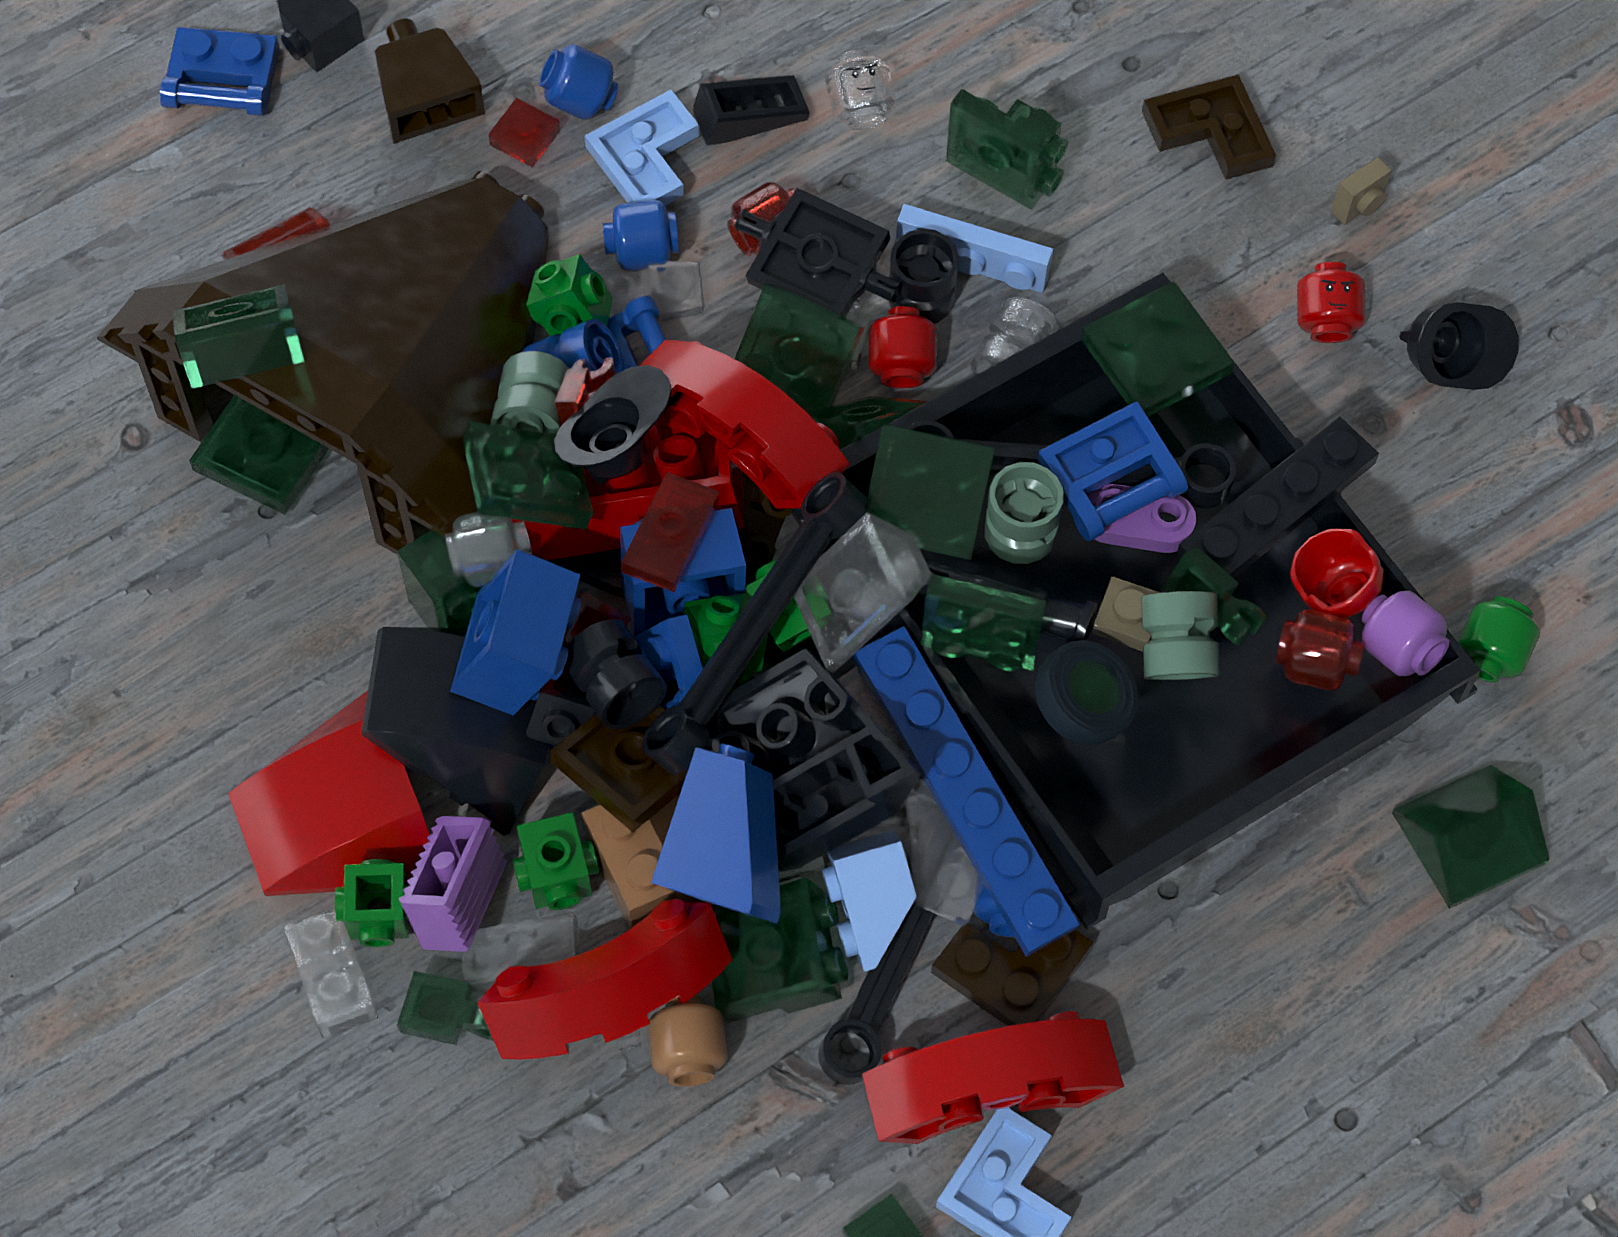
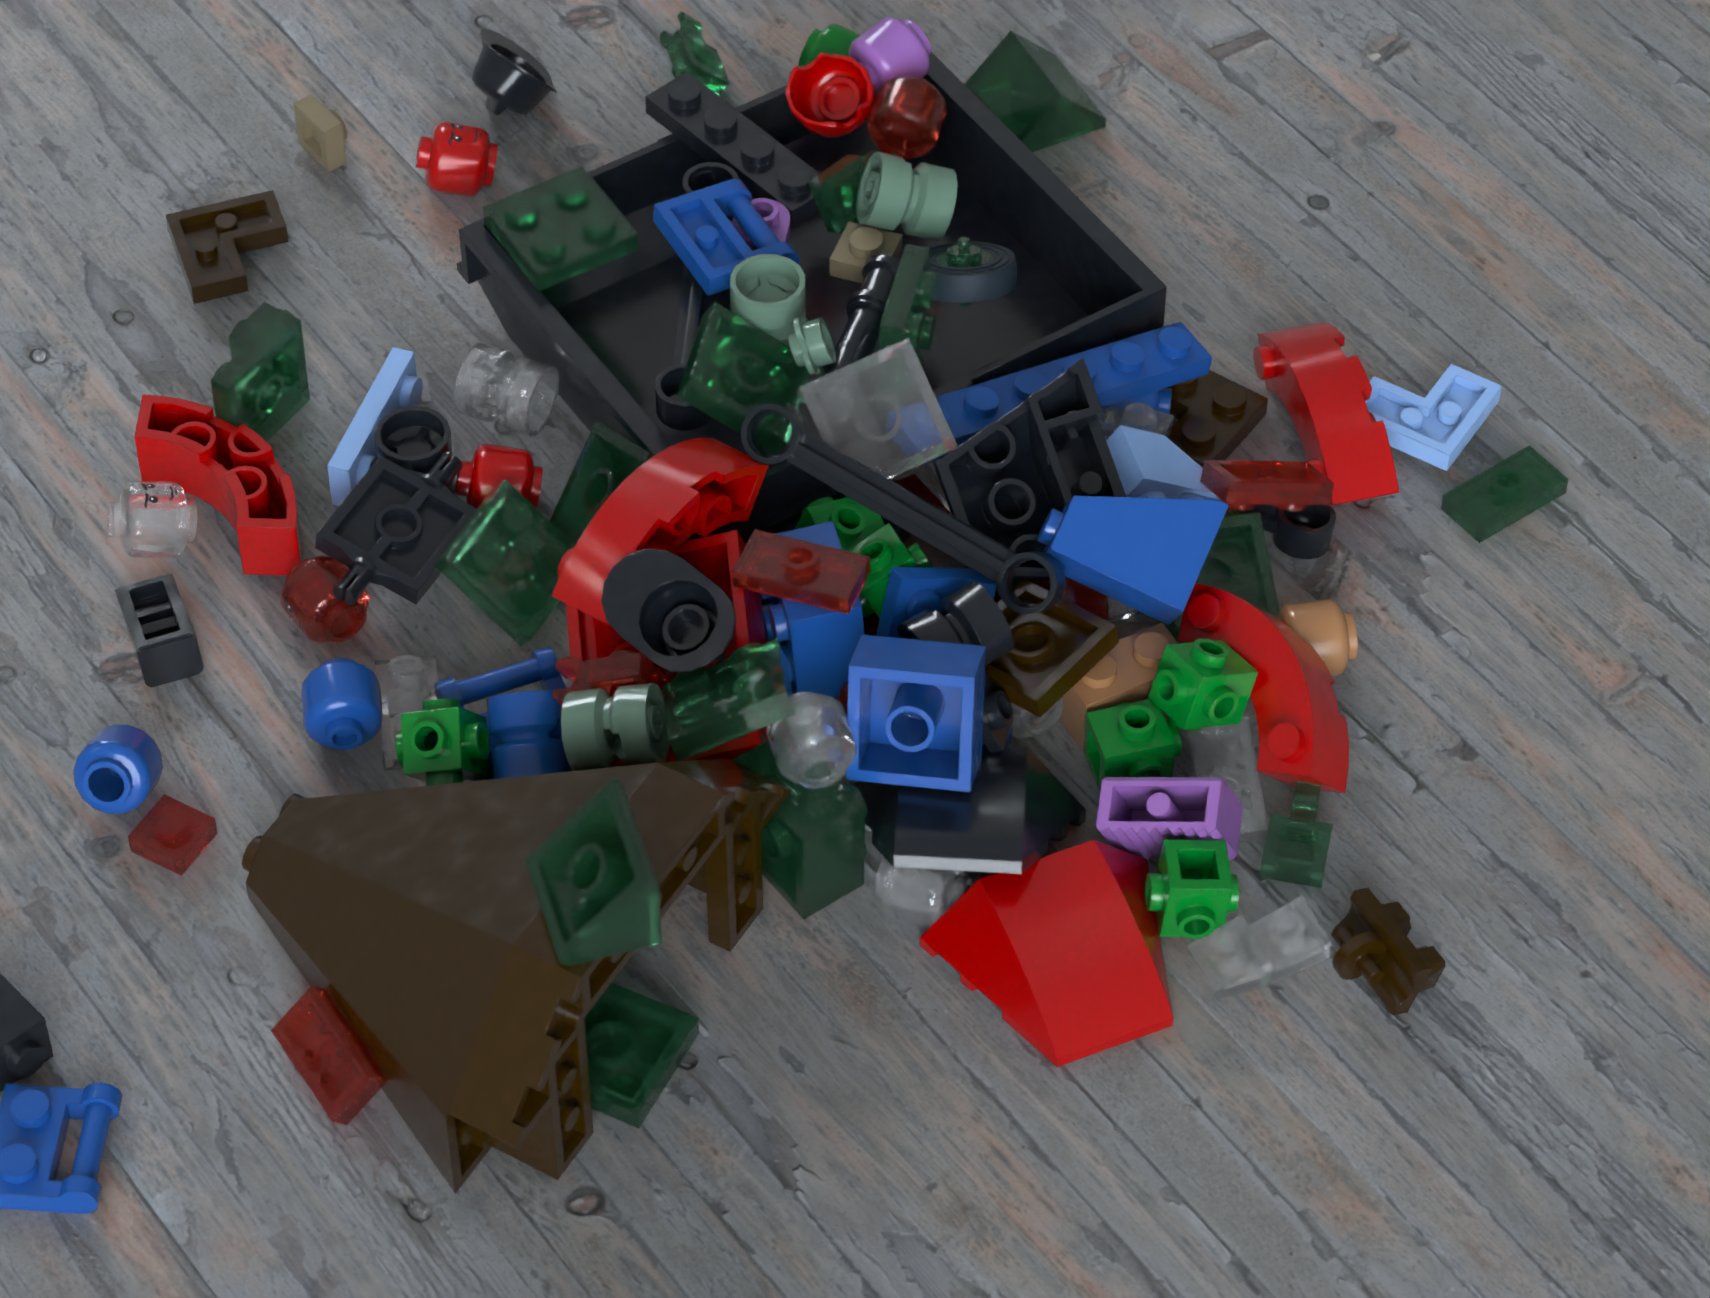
camera: 90 degrees left, 15 degrees down
(283, 1089) = (1377, 947): none -> dark brown hips
(425, 81) = (95, 925): dark brown torso -> none
(585, 906) = (1202, 684): none -> green brick
(634, 145) = (217, 727): light blue plate -> none
(861, 995) = (1277, 483): none -> clear red plate
(888, 154) = (229, 471): none -> red brick
(965, 545) = (812, 344): none -> sand green plate
(1495, 507) = (692, 55): none -> clear green plate

